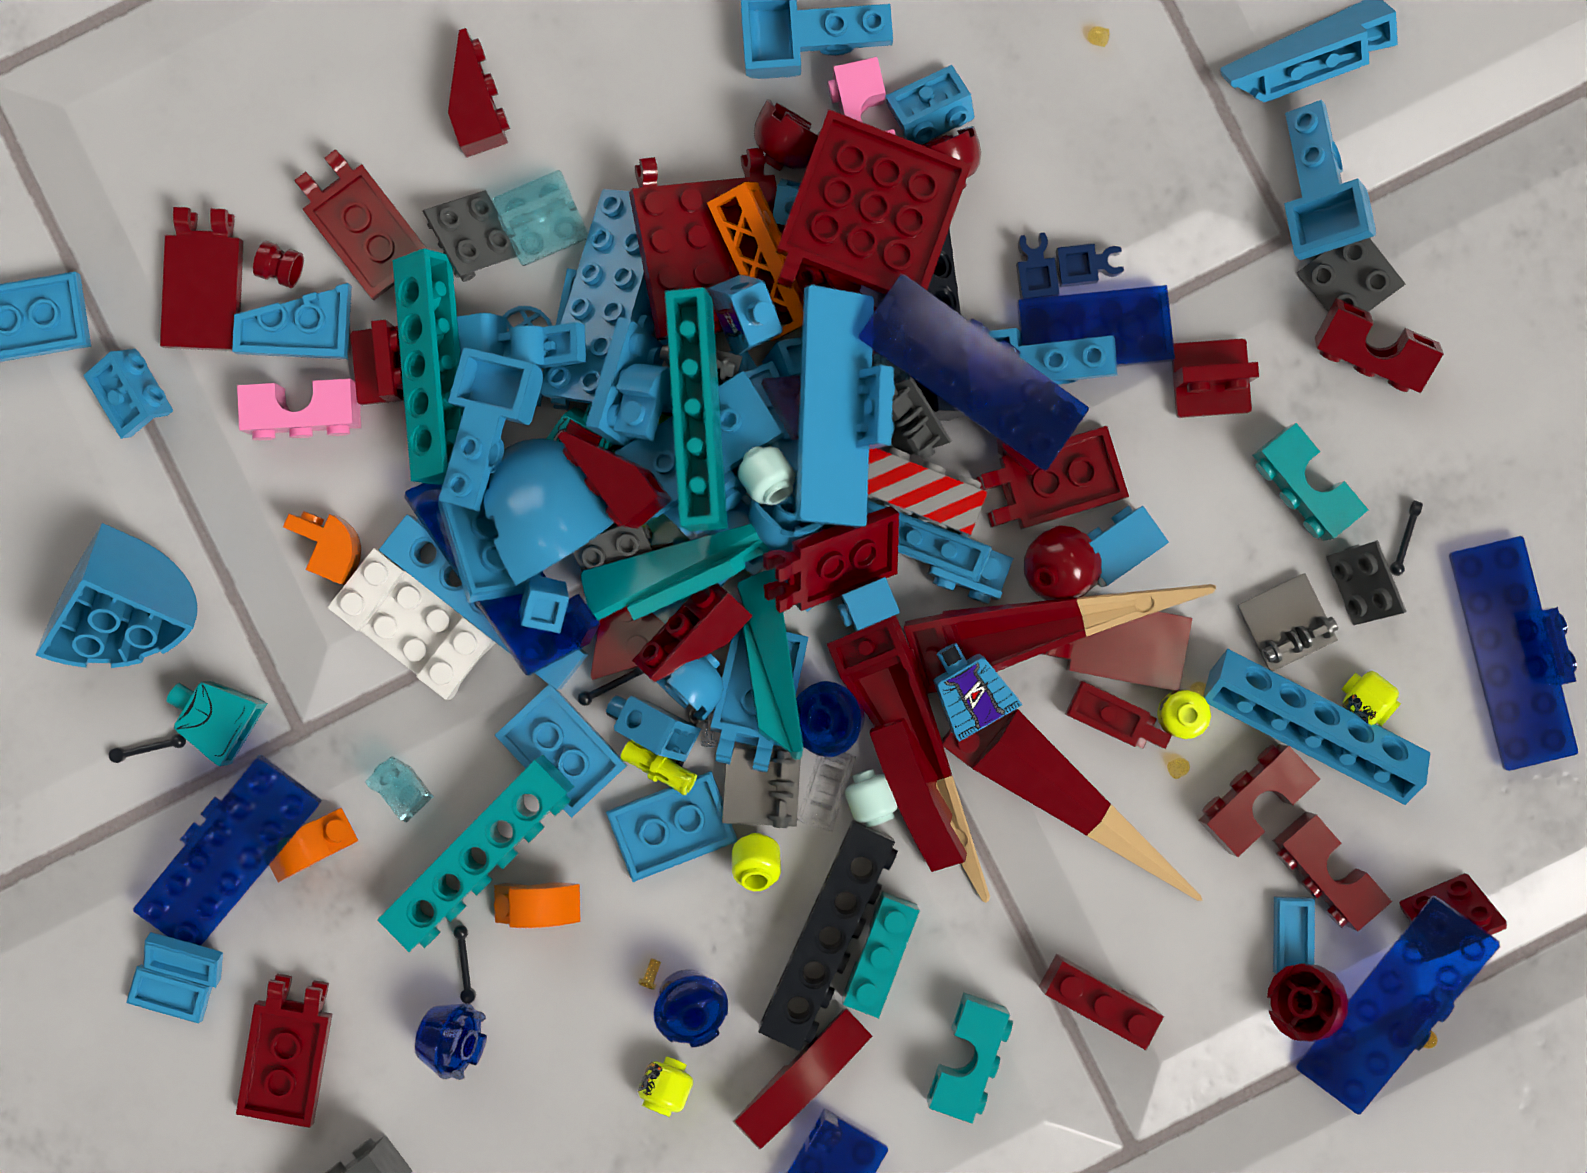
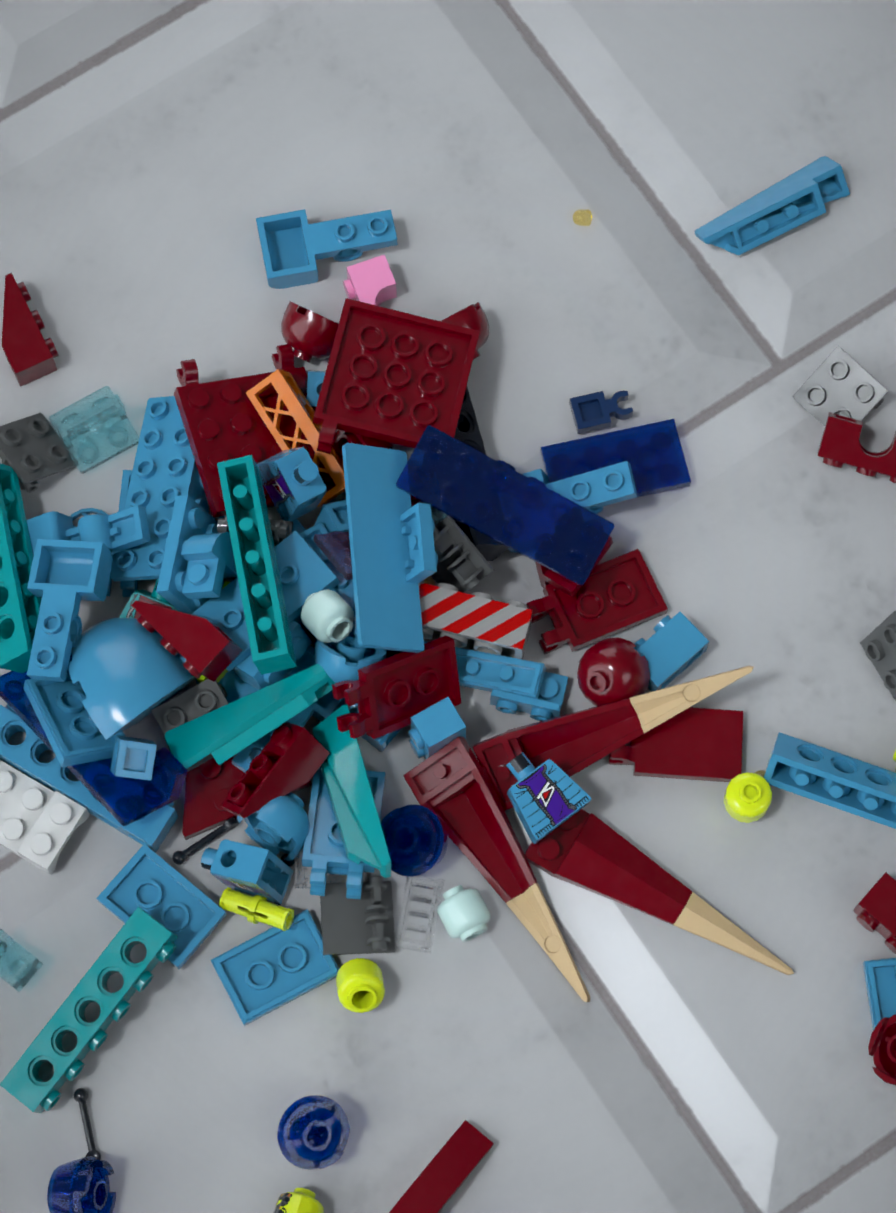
camera: 10 degrees left, 15 degrees down
(537, 904) = (152, 1053): orange brick -> none
(650, 975) = (270, 1113): clear yellow piece -> none
(796, 1028) = (456, 957): black brick -> none
(881, 954) = (490, 1060): teal arch -> none
(916, 794) = (506, 903): dark red slope -> none
(931, 105) = (440, 290): dark azure bracket -> none
(961, 1090) = (587, 1184): teal arch -> none
(1036, 275) = (553, 424): dark blue plate -> none
(1101, 1002) = (704, 1074): dark red arch -> none
(1115, 717) = (685, 810): dark red hinge -> none
(1178, 767) = (752, 852): clear yellow piece -> none
(1212, 378) = (729, 496): dark red bracket -> none
(1232, 818) = (848, 843): dark red arch -> none
(1285, 463) = (848, 598): teal arch -> none
(1288, 622) = (833, 705): dark grey hinge -> none
(1329, 211) = (808, 334): dark azure plate -> none

